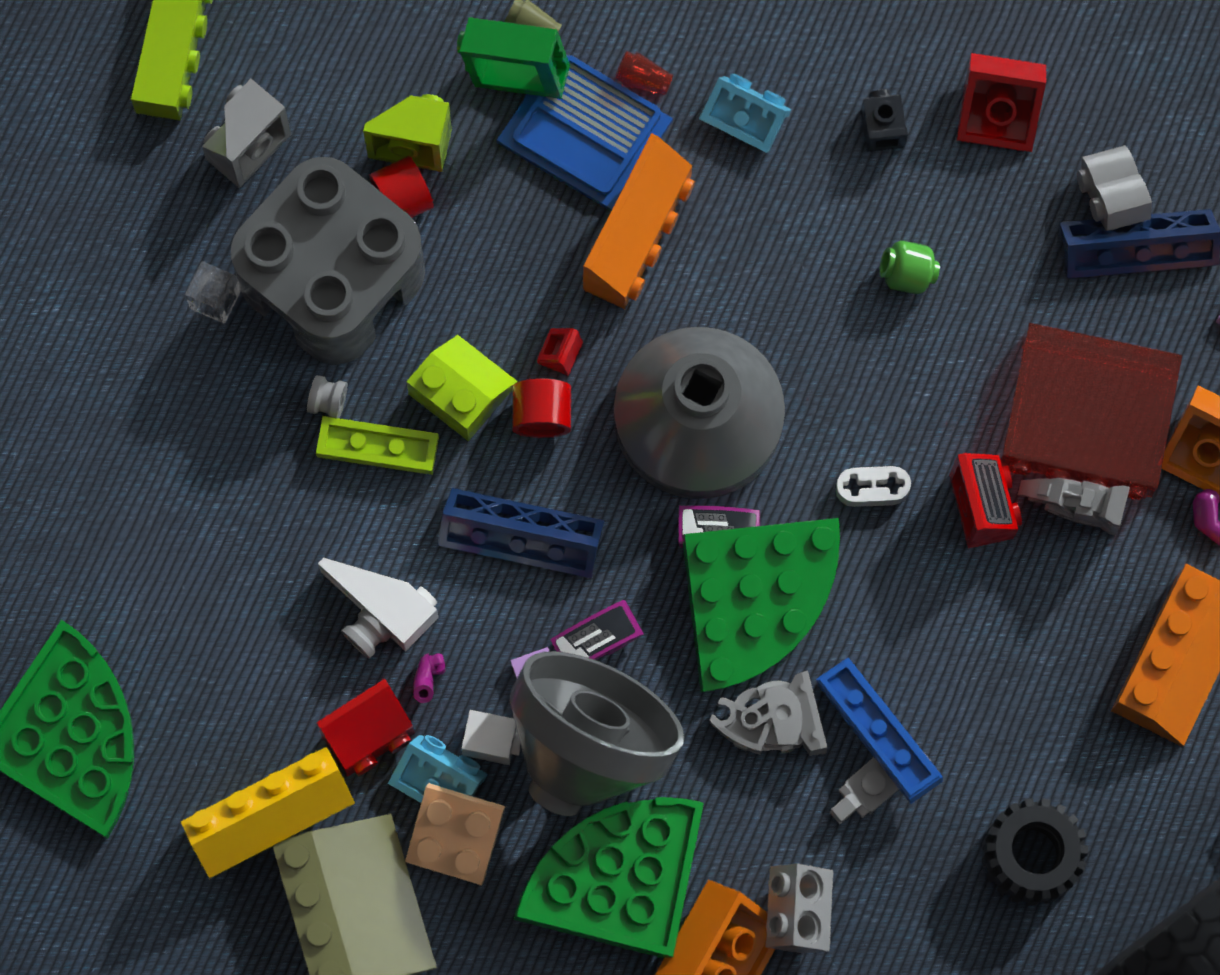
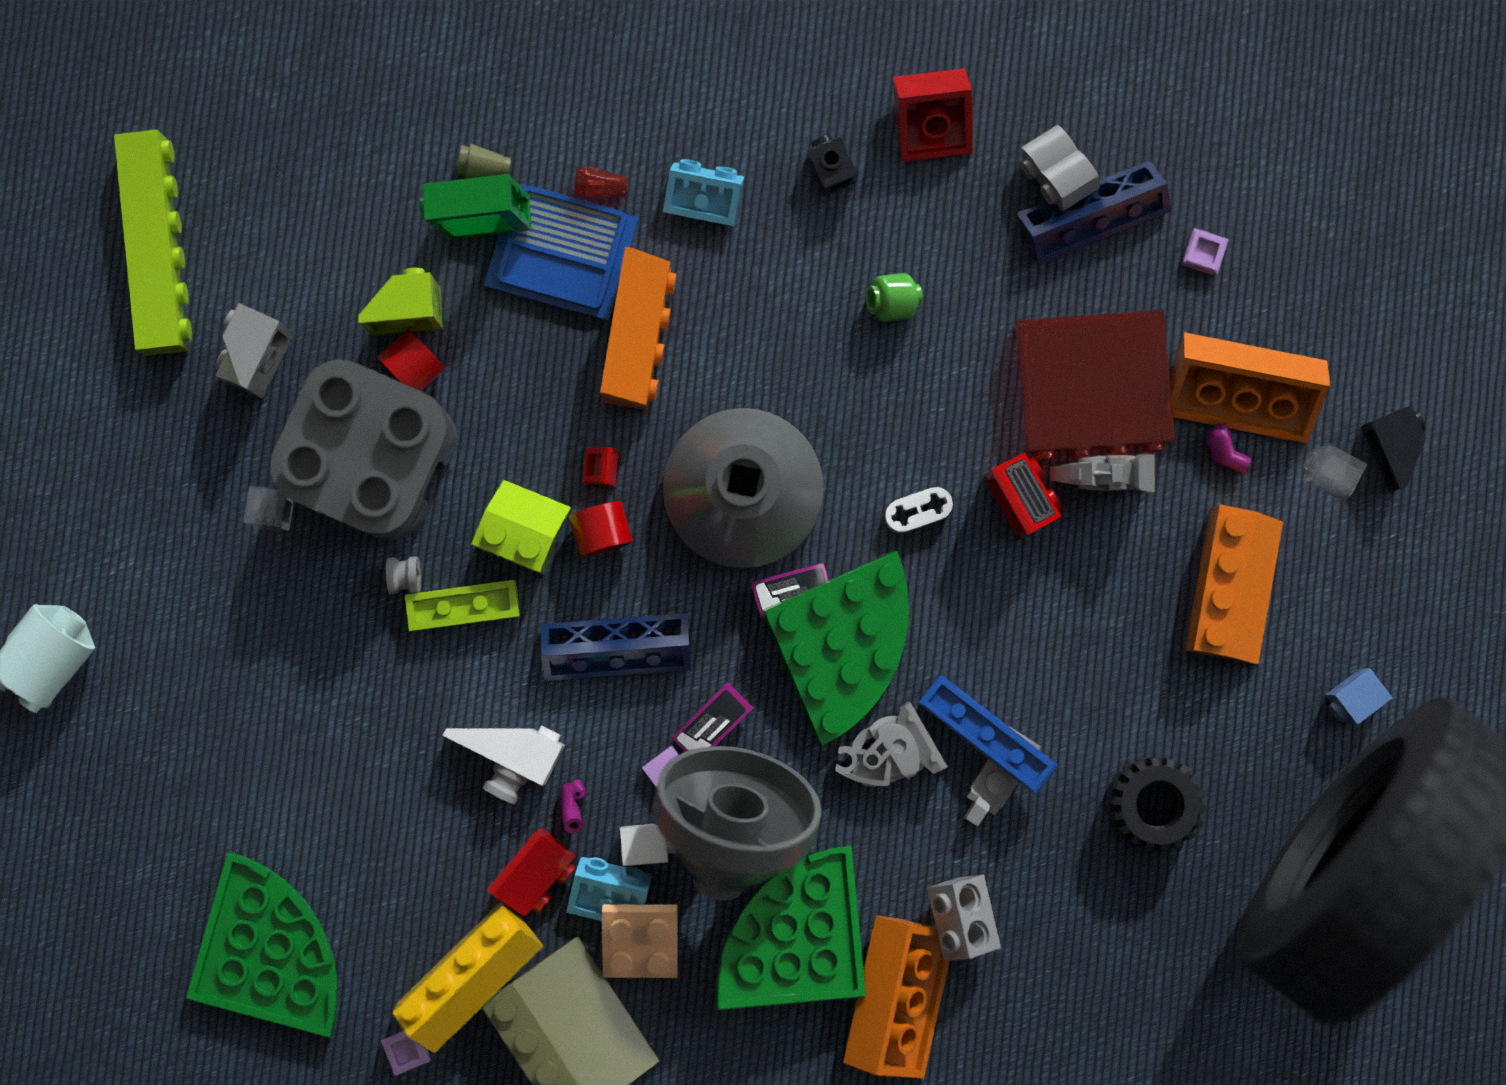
camera: 20 degrees left, 10 degrees up
(178, 877) = (404, 1052): none -> lavender tile

